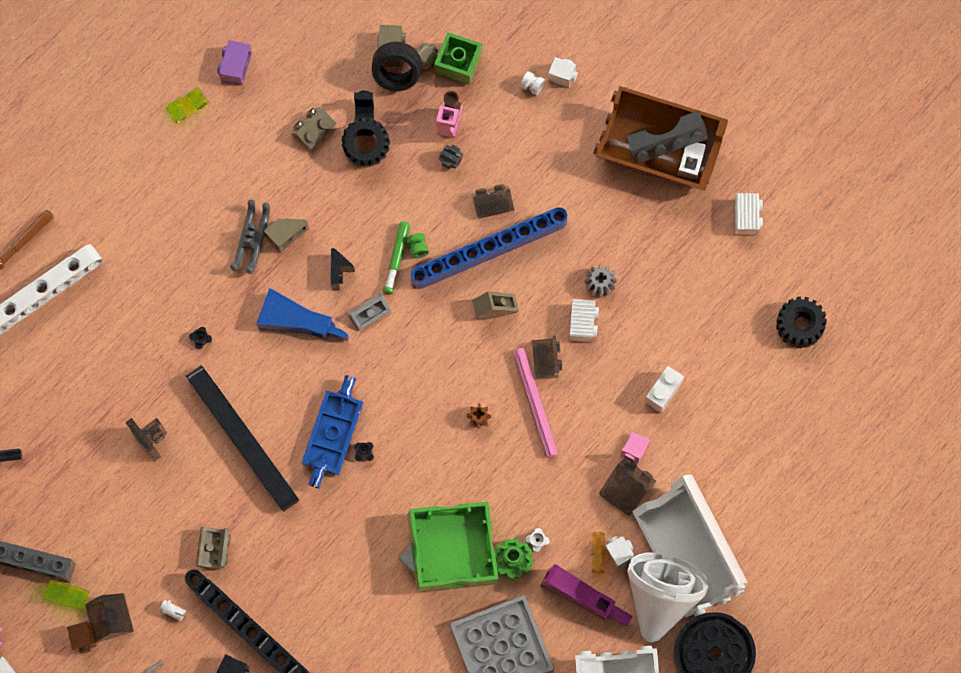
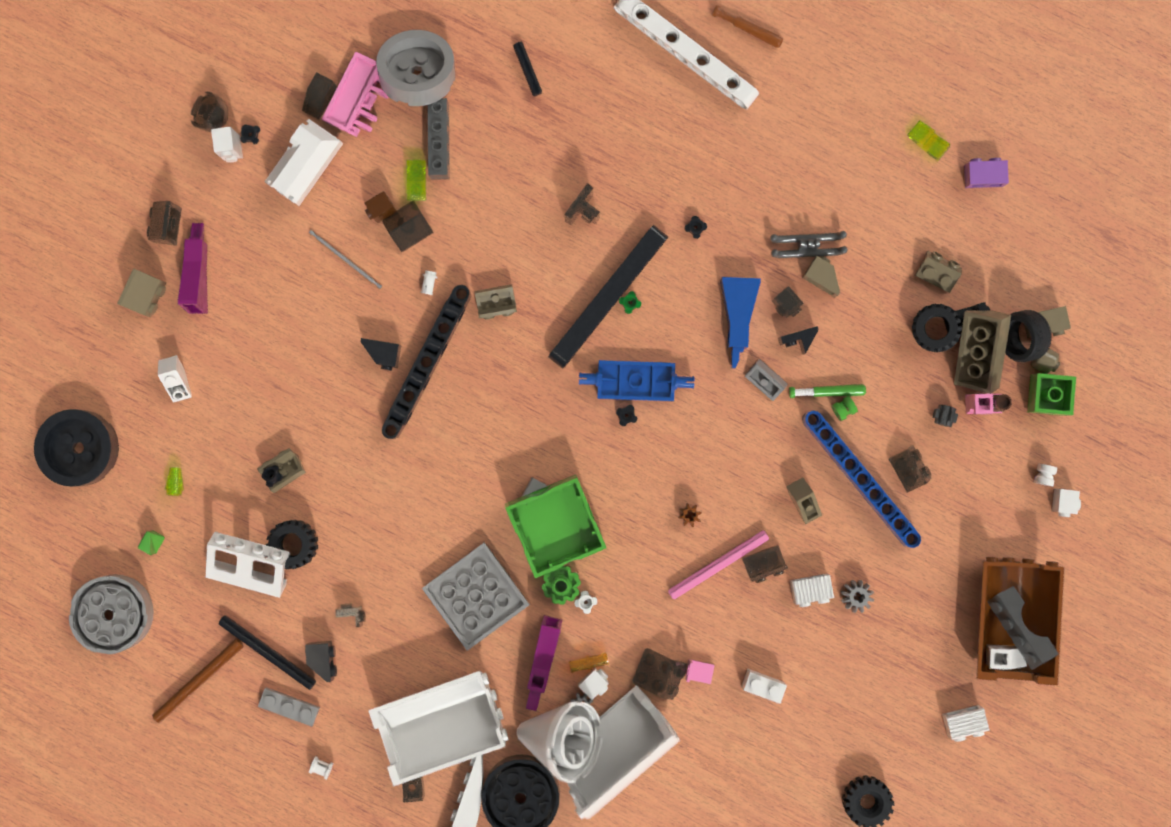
camera: 75 degrees right, 15 degrees up
(257, 413) = (630, 307): none -> green plate
(300, 271) = (787, 303): none -> clear smoke brick
(398, 107) = (982, 350): none -> dark tan slope

